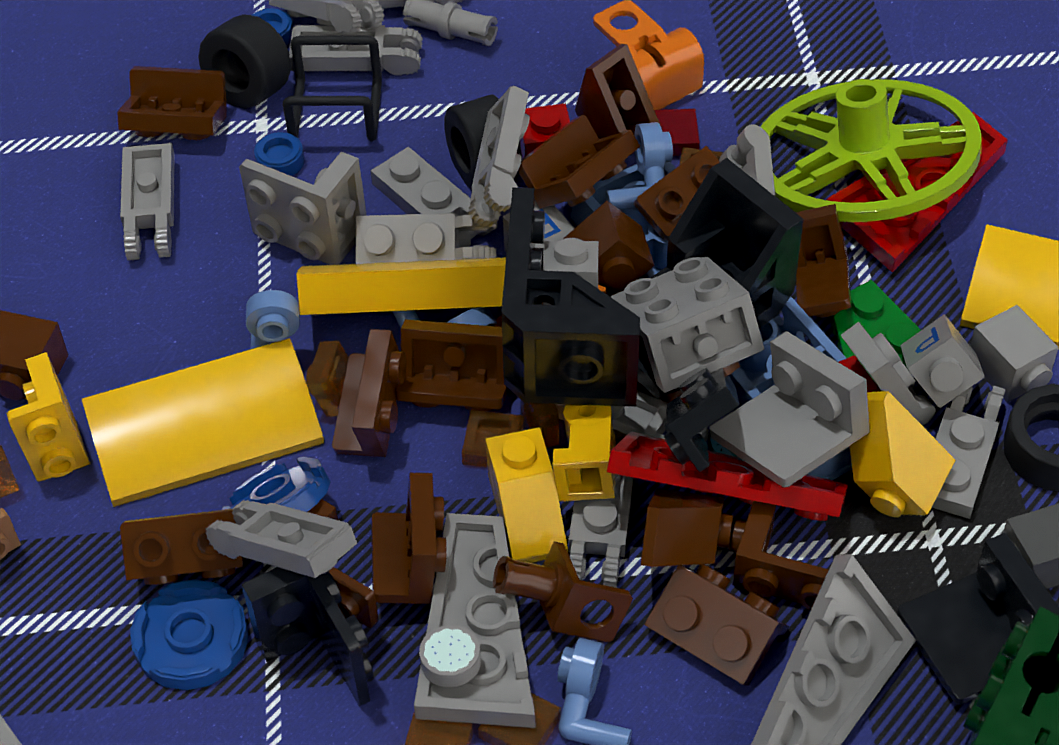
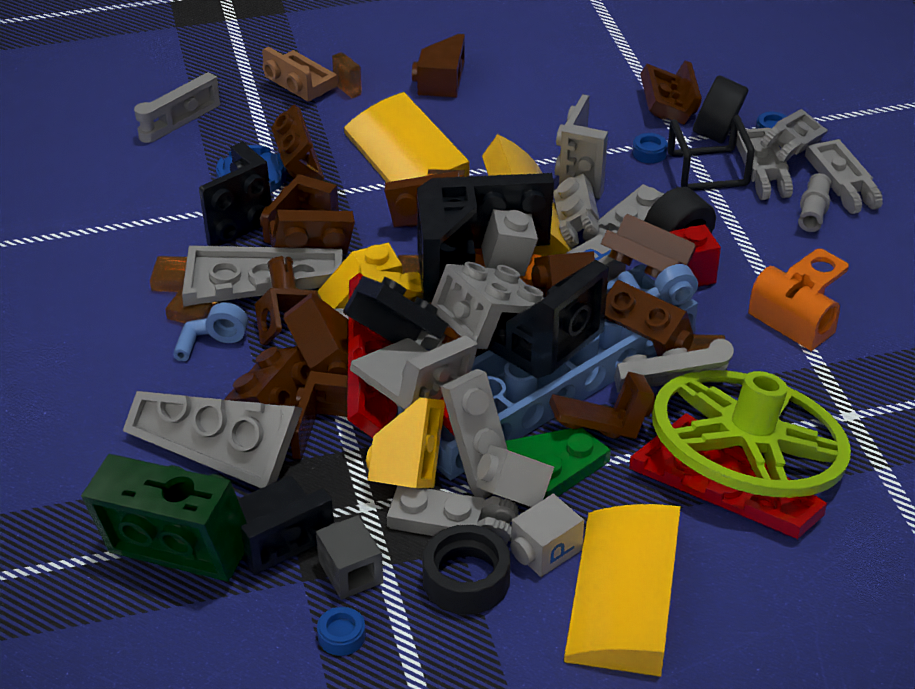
camera: 80 degrees right, 10 degrees down
(47, 424) = (379, 74): yellow bracket -> none
(147, 196) = (603, 94): light grey hinge -> none
(271, 317) = (474, 146): medium blue plate -> none
(282, 537) = (269, 145): light grey hinge -> none
(293, 487) = (340, 175): blue tile -> none
(450, 656) = (220, 251): tile -> none
(498, 157) = (658, 199): light grey hinge -> none
(614, 95) = (732, 272): reddish brown slope -> none
(681, 126) = (744, 331): dark red tile -> none

